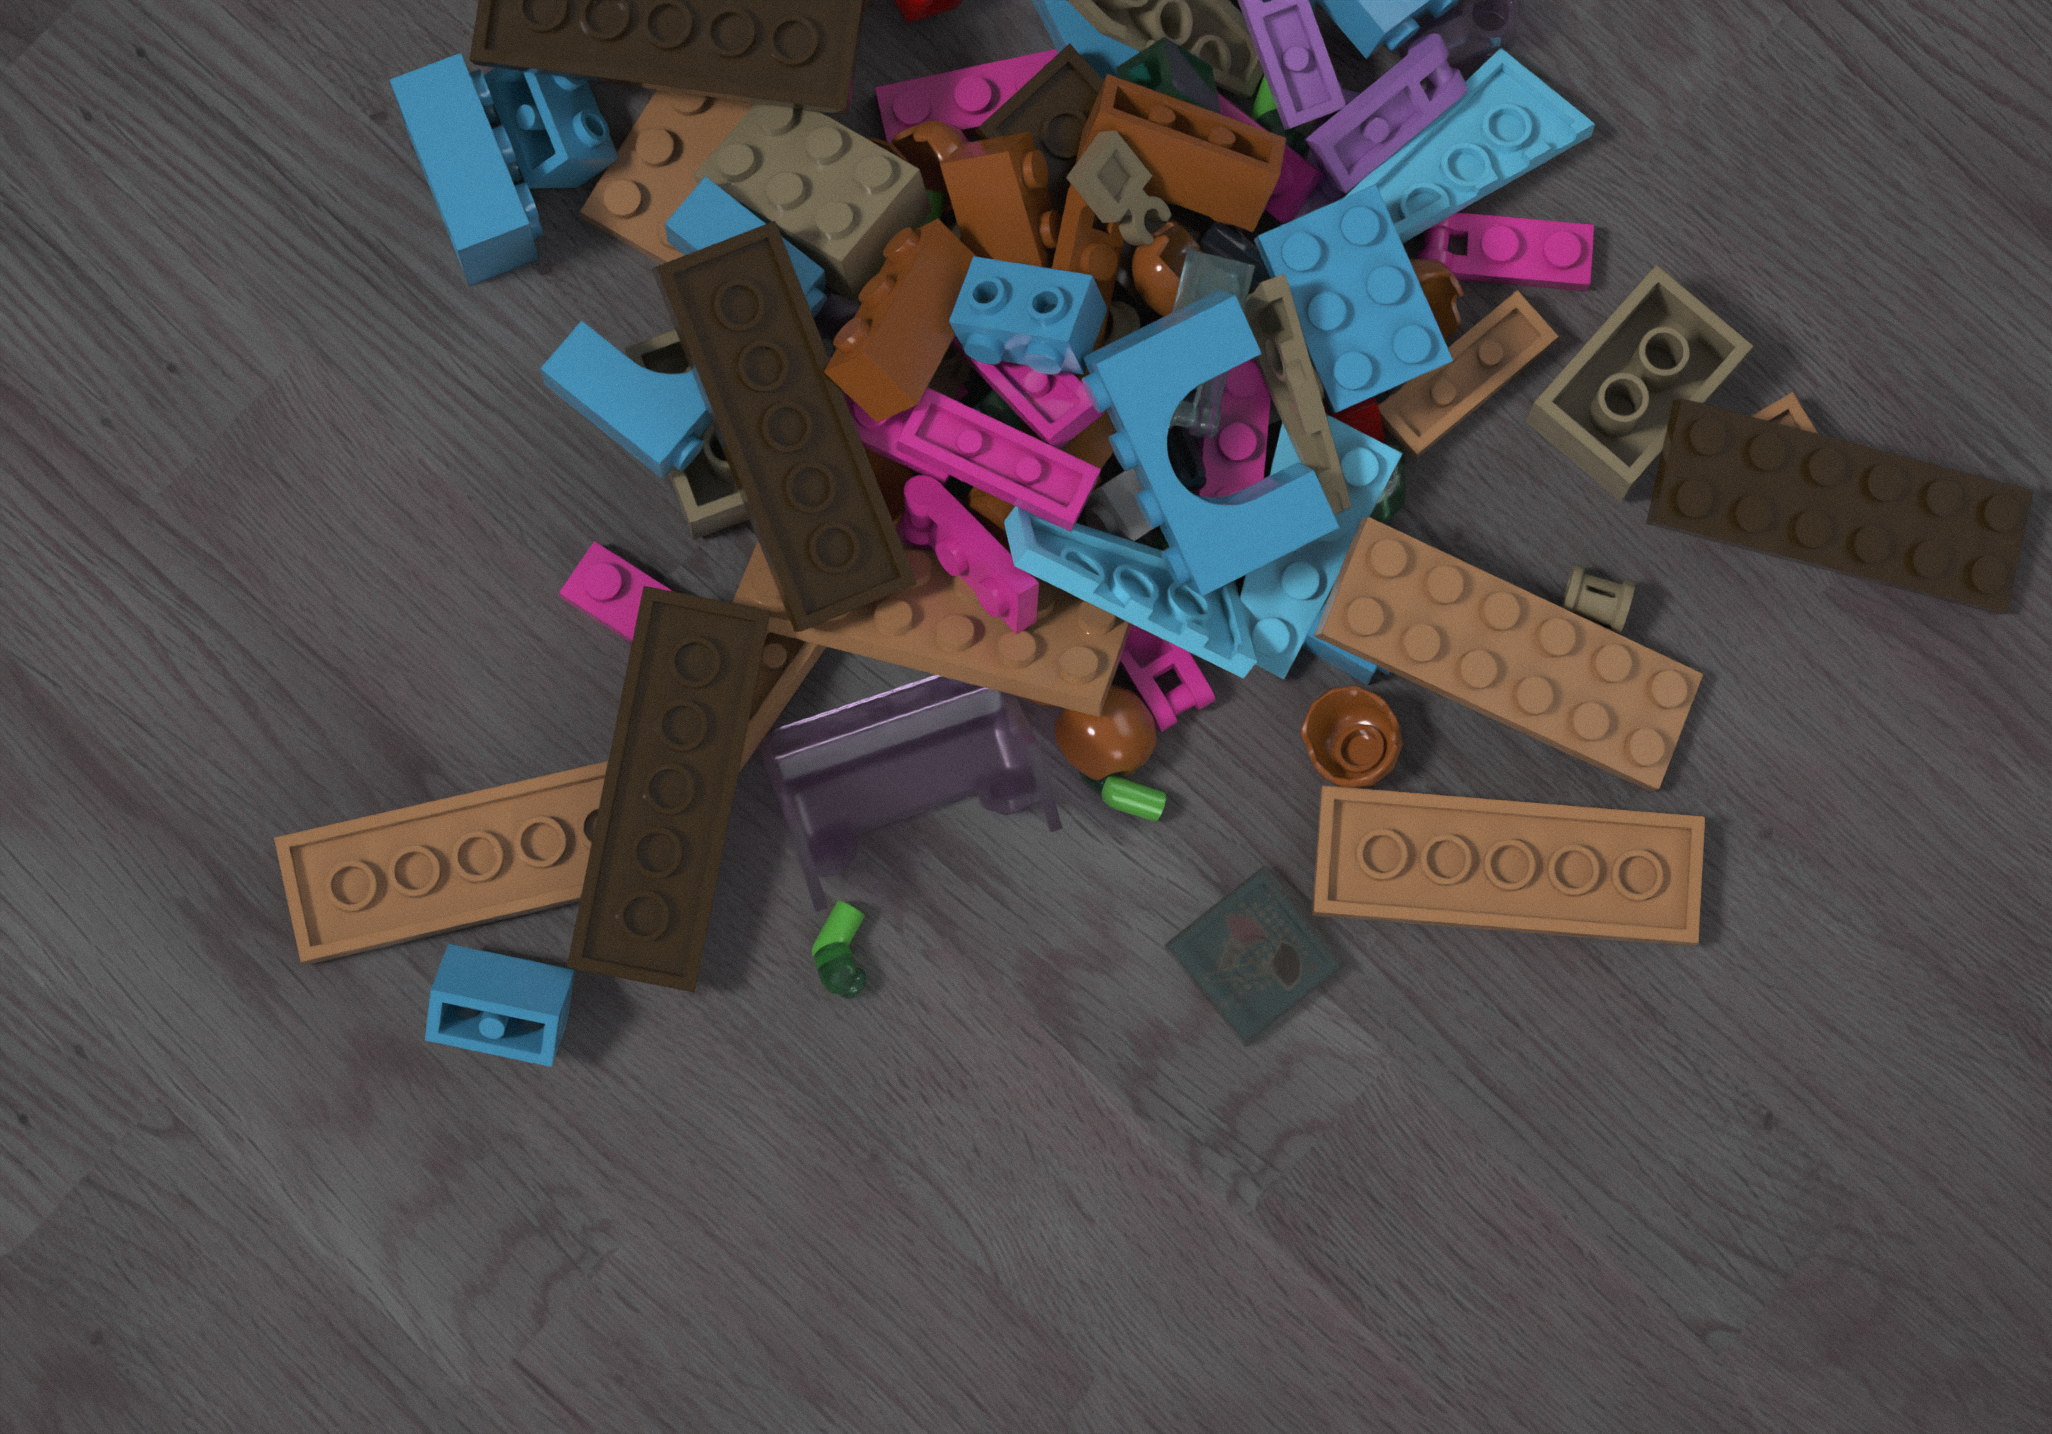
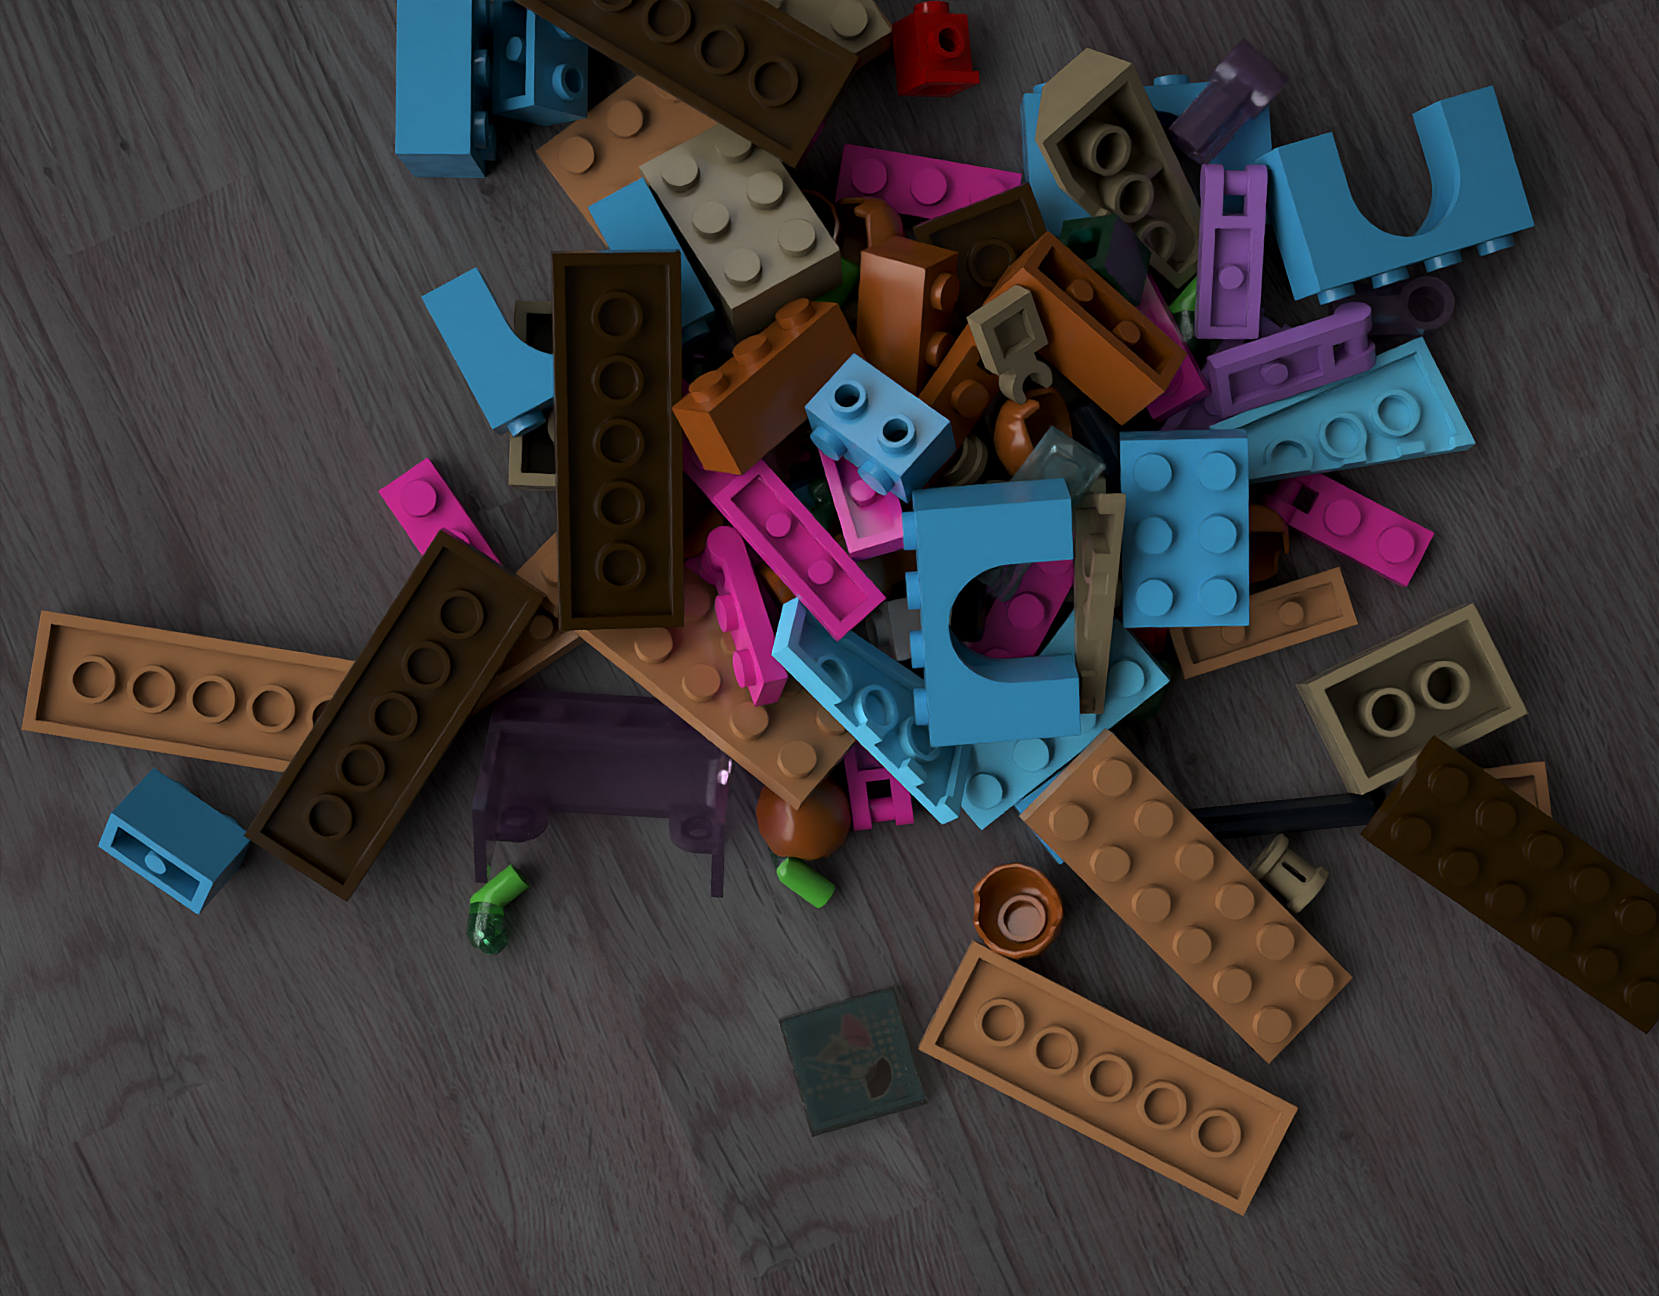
camera: 25 degrees right, 10 degrees up
(1577, 544) = (1287, 815): none -> black axle

